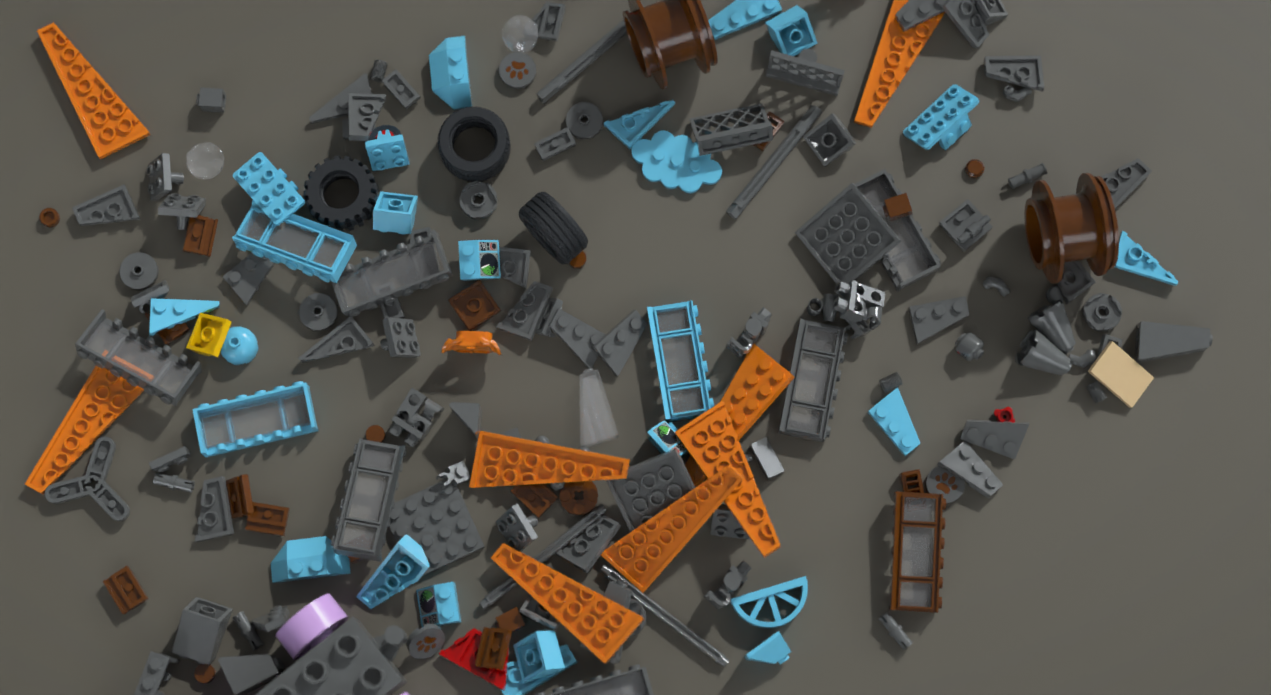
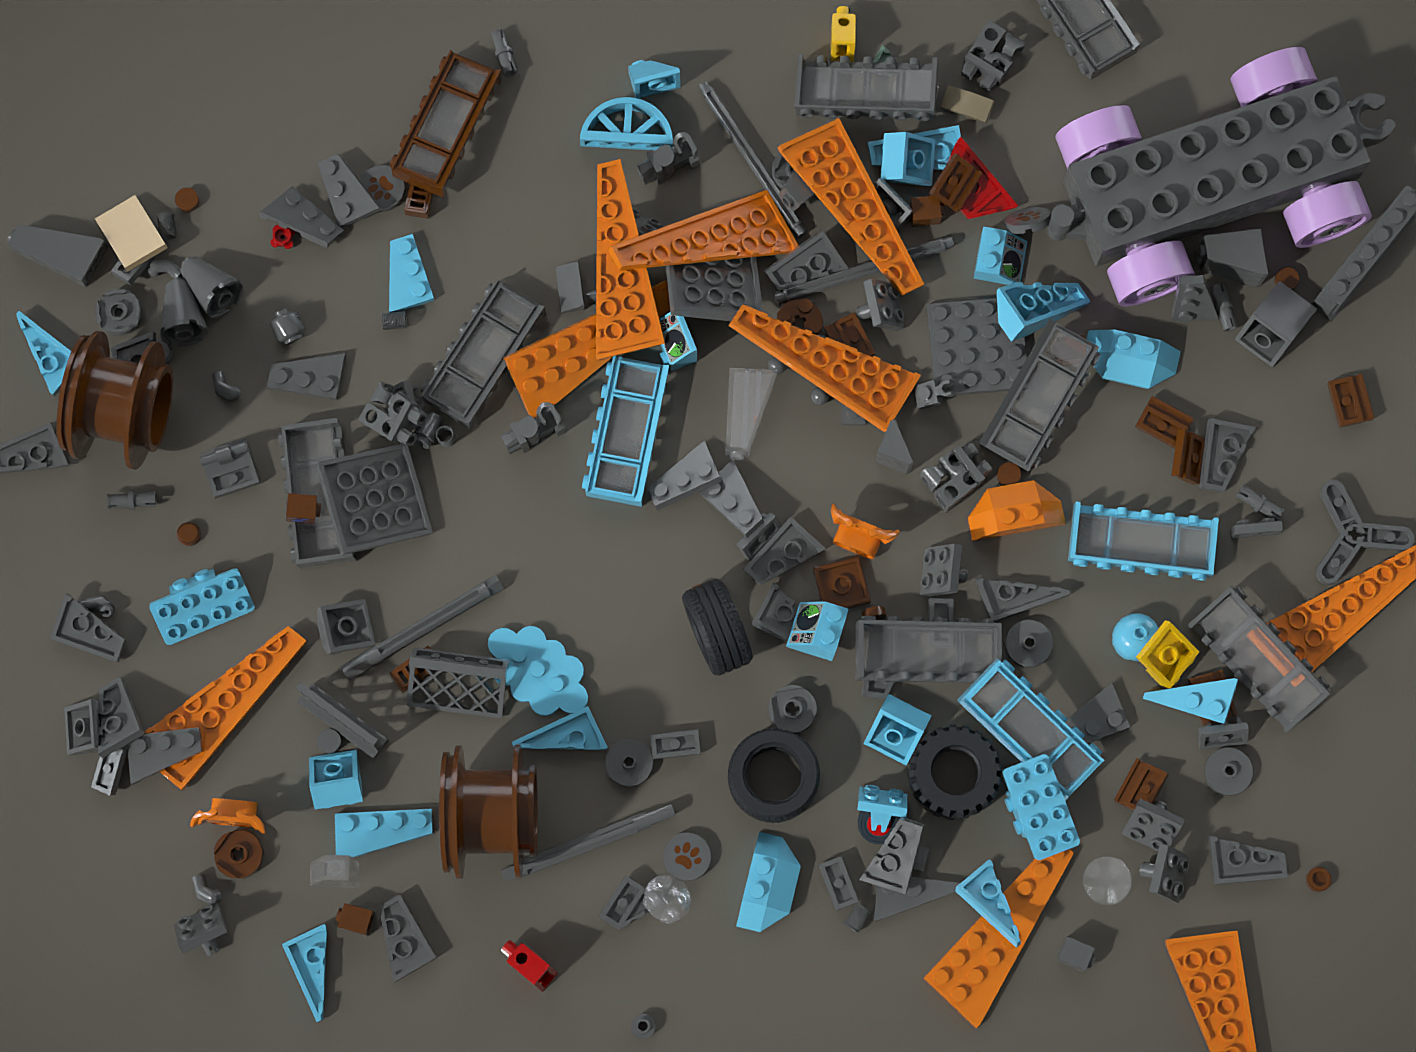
camera: 160 degrees left, 0 degrees up
(278, 78) = (983, 957): none -> orange wing
(289, 114) = (985, 896): none -> medium azure wing
(360, 407) = (1014, 510): none -> orange wedge
(442, 290) = (877, 611): none -> reddish brown tile
(1090, 419) = (187, 199): none -> reddish brown tile

